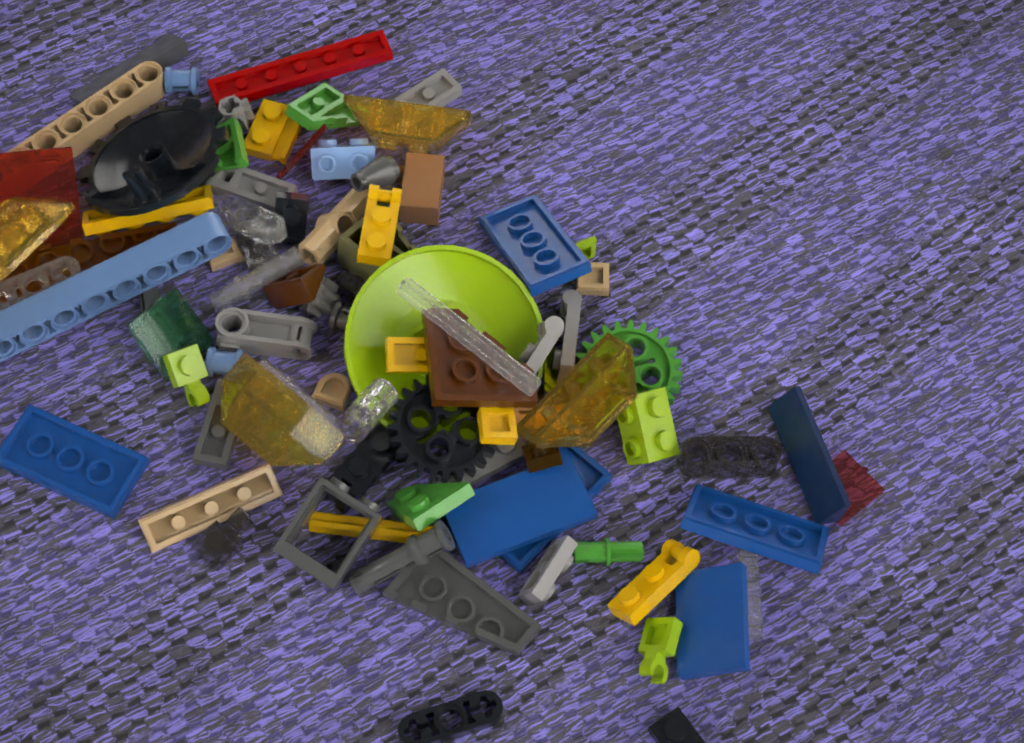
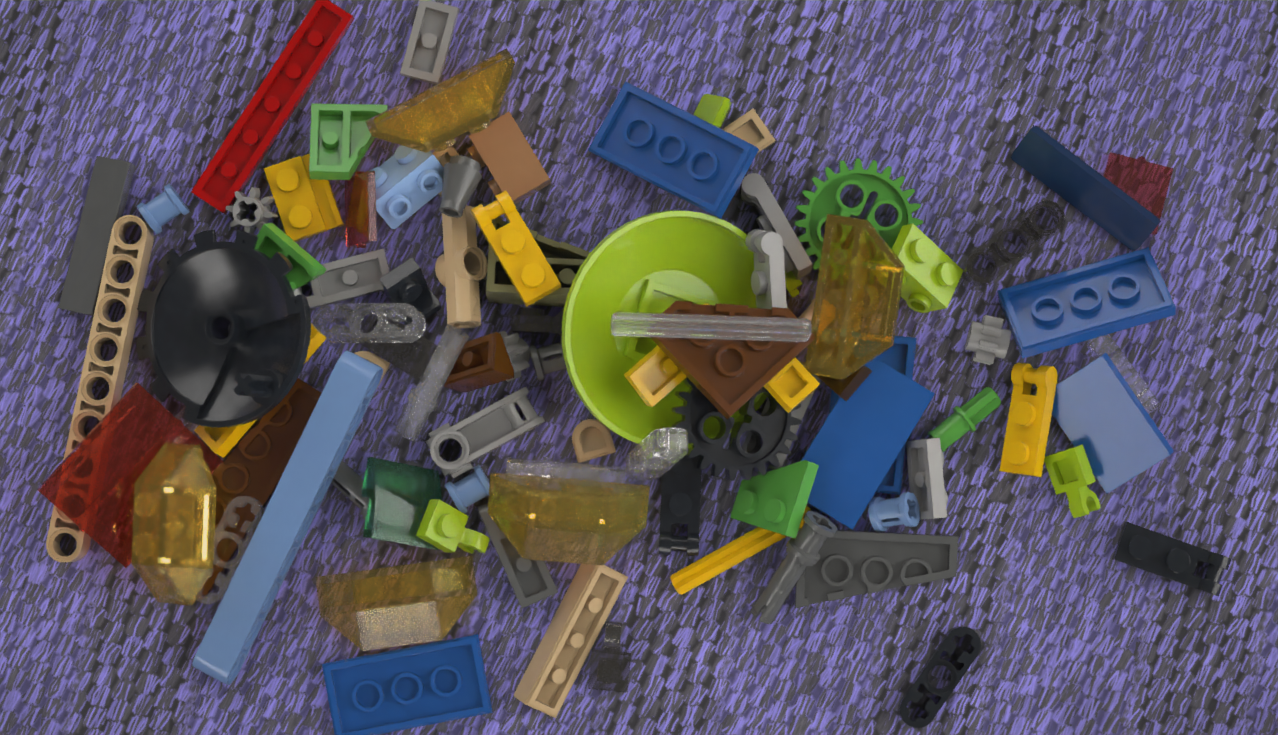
camera: 30 degrees left, 25 degrees up
(118, 398) = (398, 602): none -> clear yellow wedge
(306, 562) = (712, 630): dark grey window -> none
(507, 574) = (894, 511): none -> medium blue bush
(664, 506) = (988, 339): none -> light grey gear

